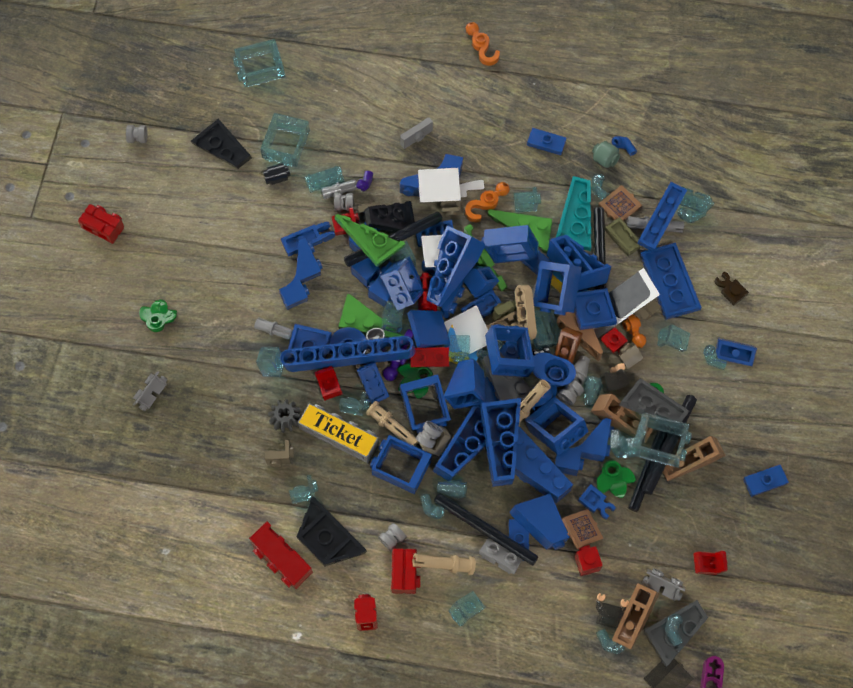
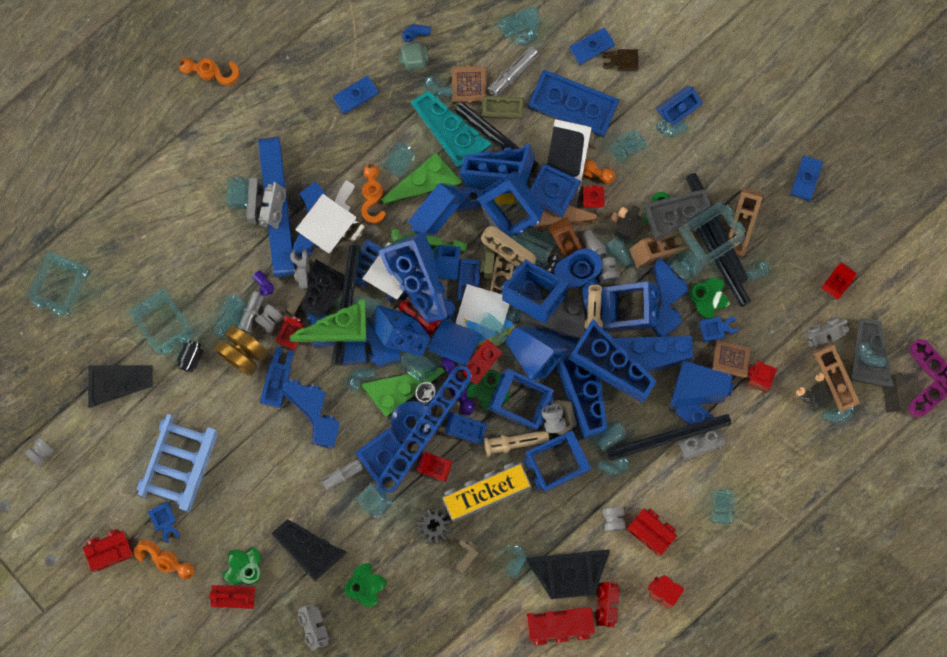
camera: 50 degrees left, 10 degrees up
(122, 262) = (164, 560): none -> orange piece
(130, 323) = (232, 597): none -> red hinge
(150, 241) = (164, 519): none -> blue plate
(201, 348) = (308, 550): none -> black wing
(202, 236) = (192, 479): none -> light blue fence
(208, 405) = (368, 584): none -> green plate
(305, 198) = (242, 348): none -> pearl gold wheel
(317, 584) = (605, 614): none -> red hinge
(346, 287) = (357, 376): none -> clear light blue arm
(352, 406) = (470, 462): clear light blue bracket -> none
(395, 195) = (302, 273): none -> light grey plate
(412, 117) = (237, 192): none -> clear light blue brick
(424, 143) = (274, 196): none -> light grey hinge
(425, 149) = (280, 238): none -> blue beam
(453, 563) = (678, 487): tan pin -> none
(630, 354) = (614, 194): dark tan bracket -> none
(662, 216) = (515, 61): blue plate -> none
(668, 502) = (763, 271): none -> clear light blue arm
(722, 261) = (592, 46): none -> blue plate

